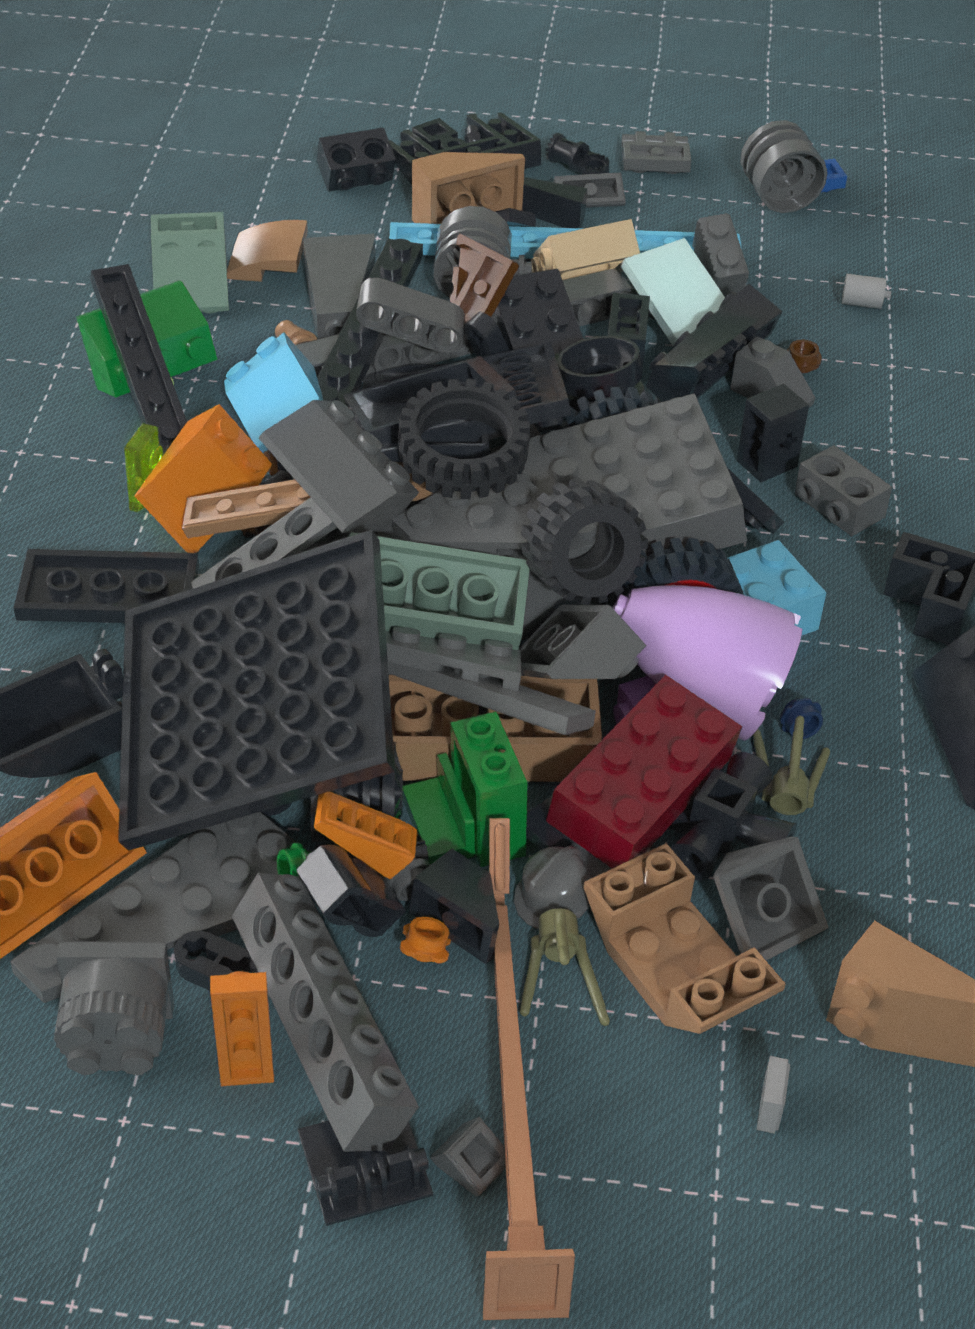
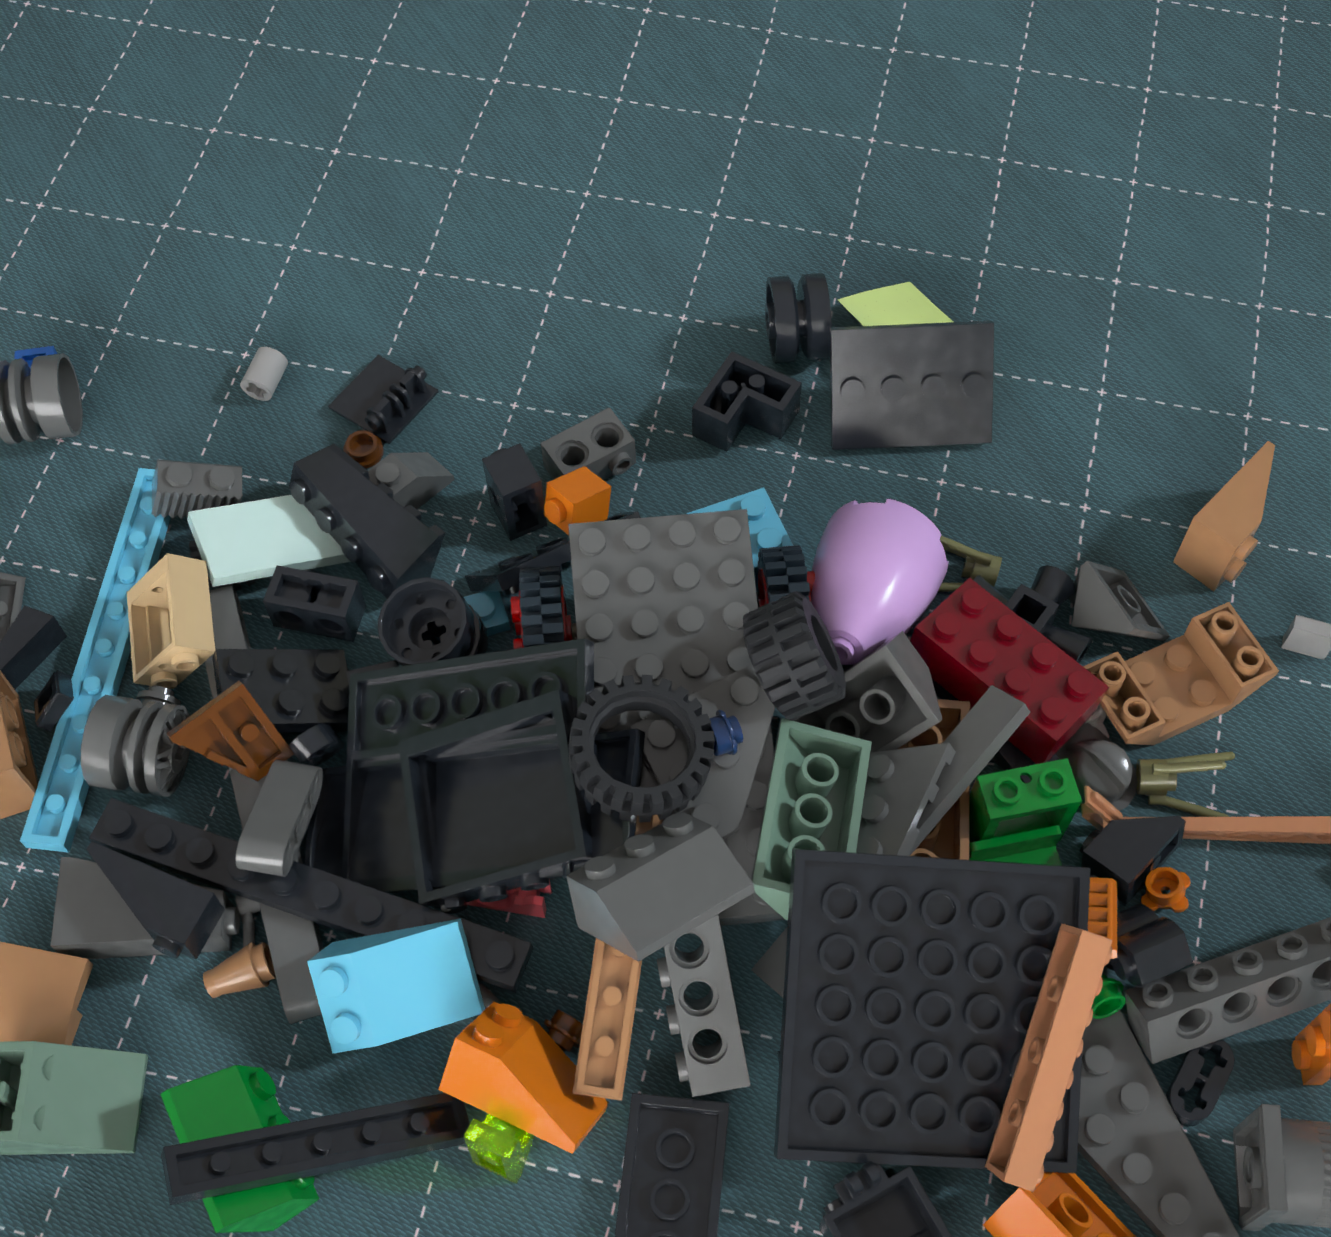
camera: 80 degrees left, 15 degrees up
(209, 758) = (1048, 1057): none -> nougat piece
(334, 269) = (168, 908): none -> black slope
(491, 495) = (726, 733): none -> dark blue plate
(774, 472) = (577, 499): none -> orange brick
(863, 365) = (384, 398): none -> black hinge

